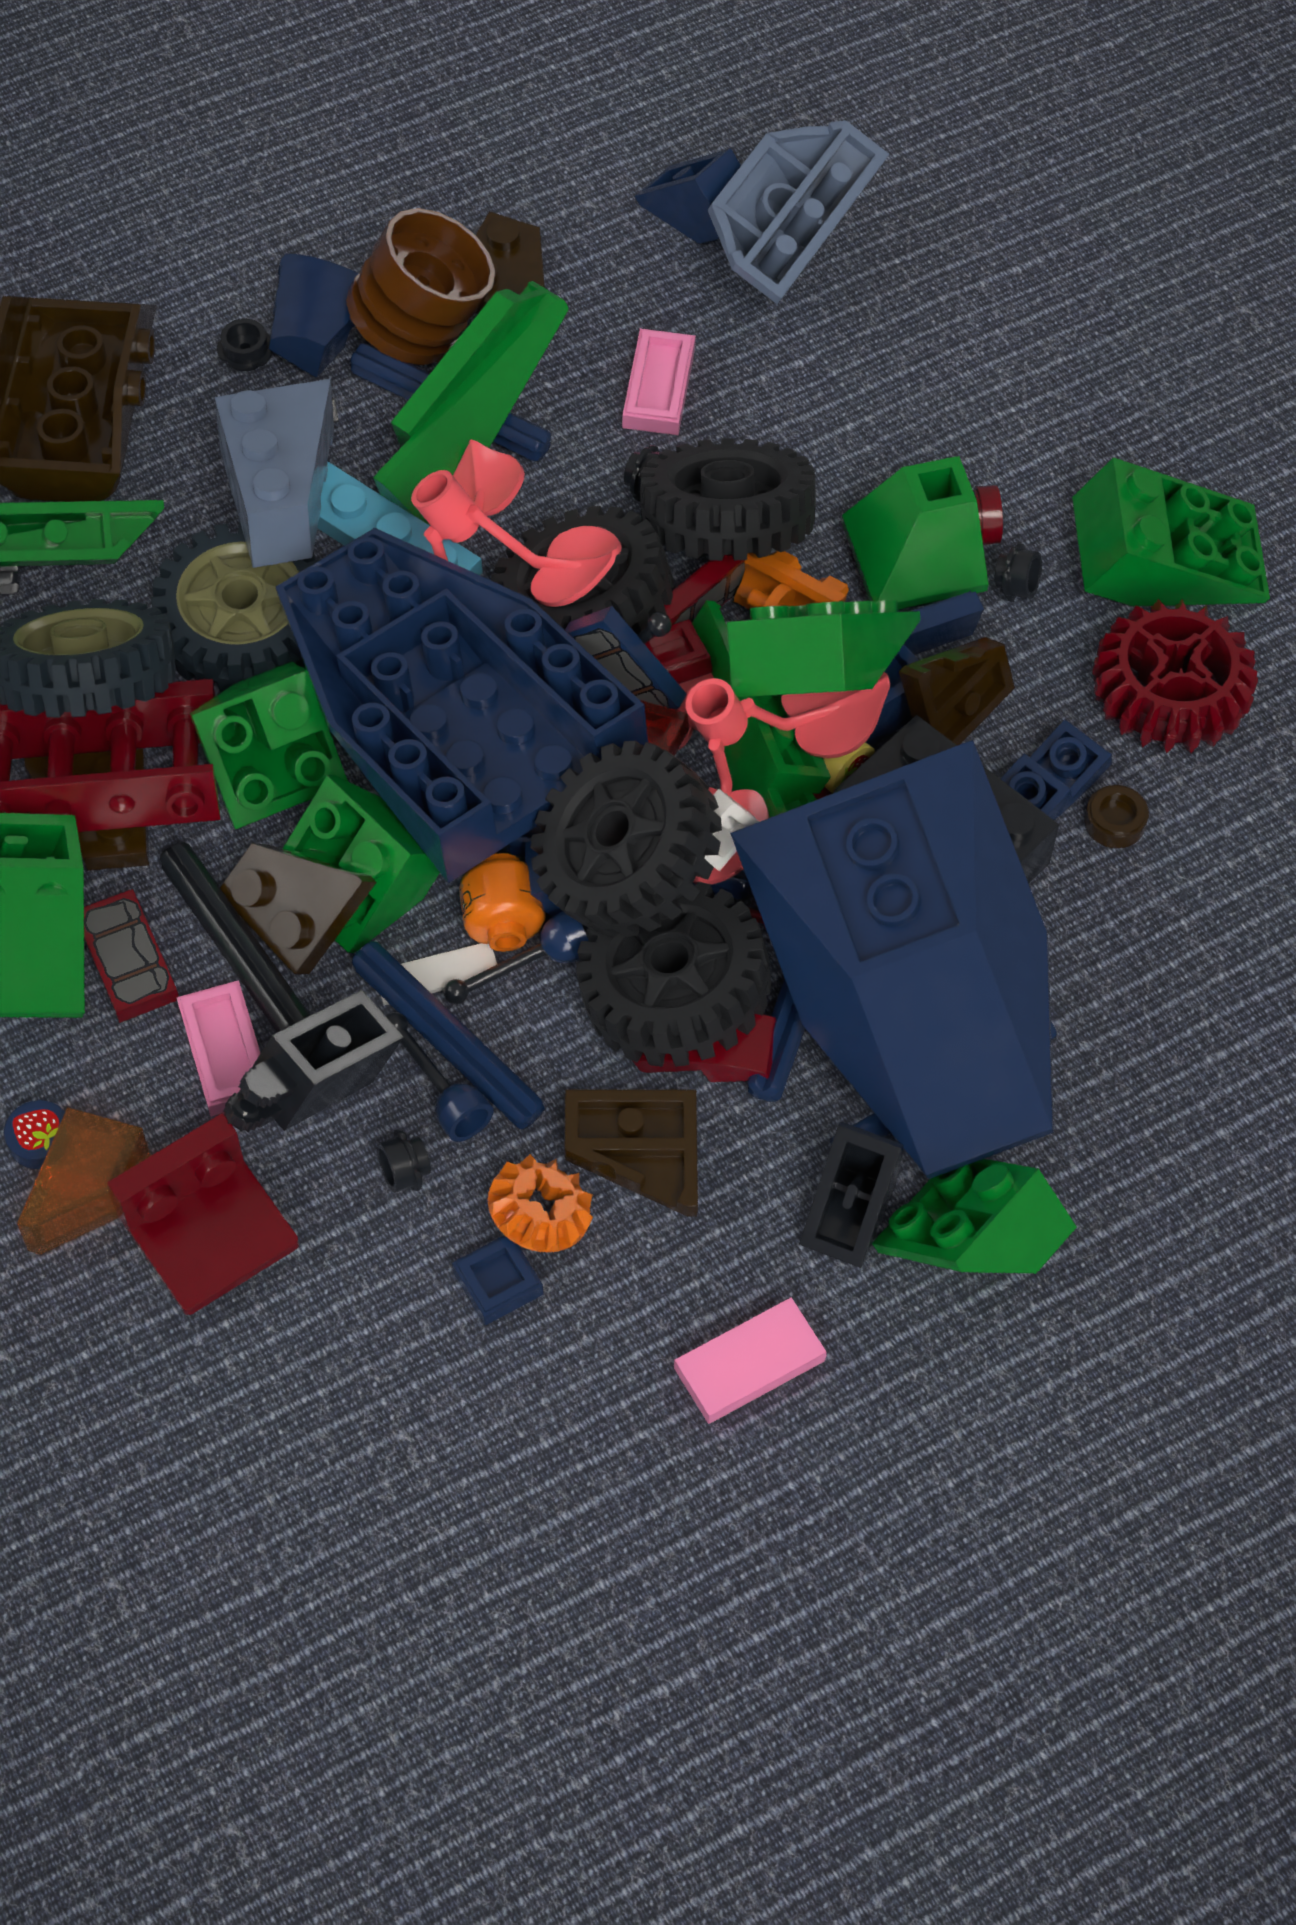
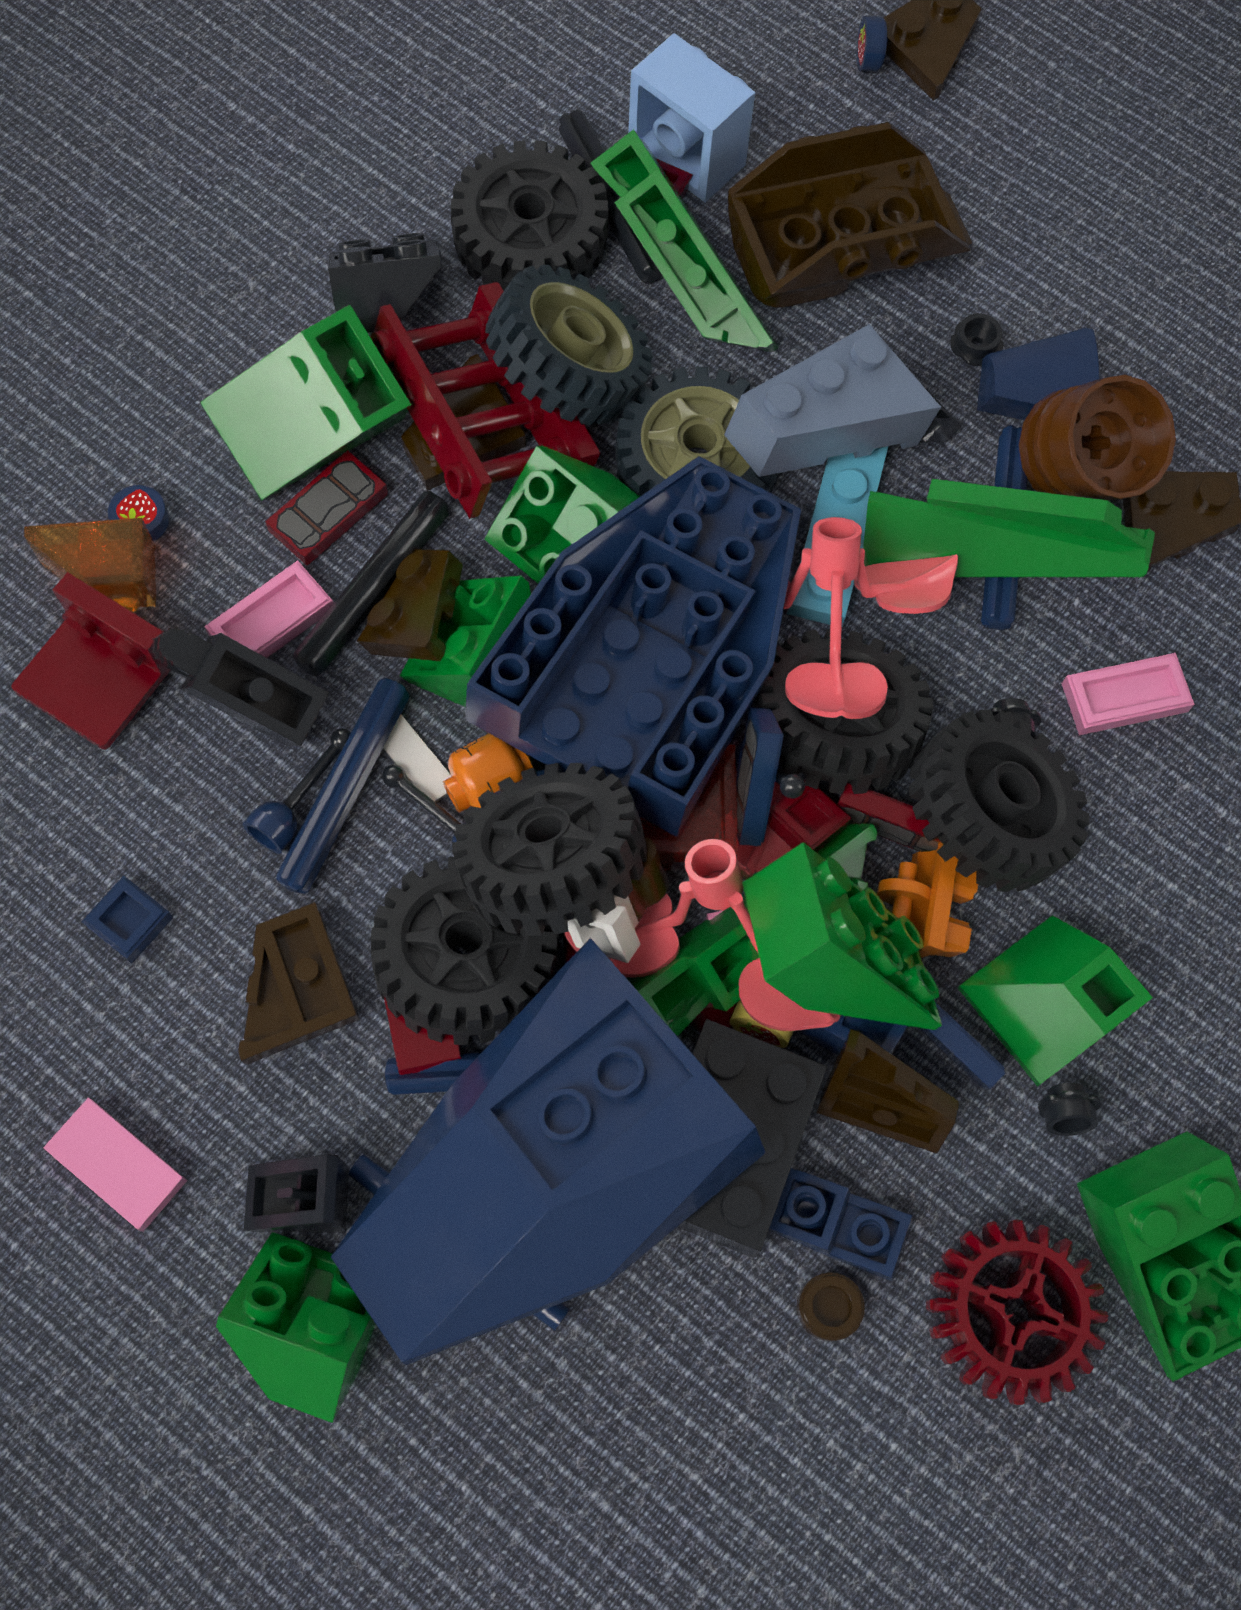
camera: 65 degrees right, 10 degrees up
(403, 1161) = (205, 798): black plate -> none
(526, 1220) = (196, 955): orange gear -> none
(990, 513) = (1120, 1052): dark red tile -> none

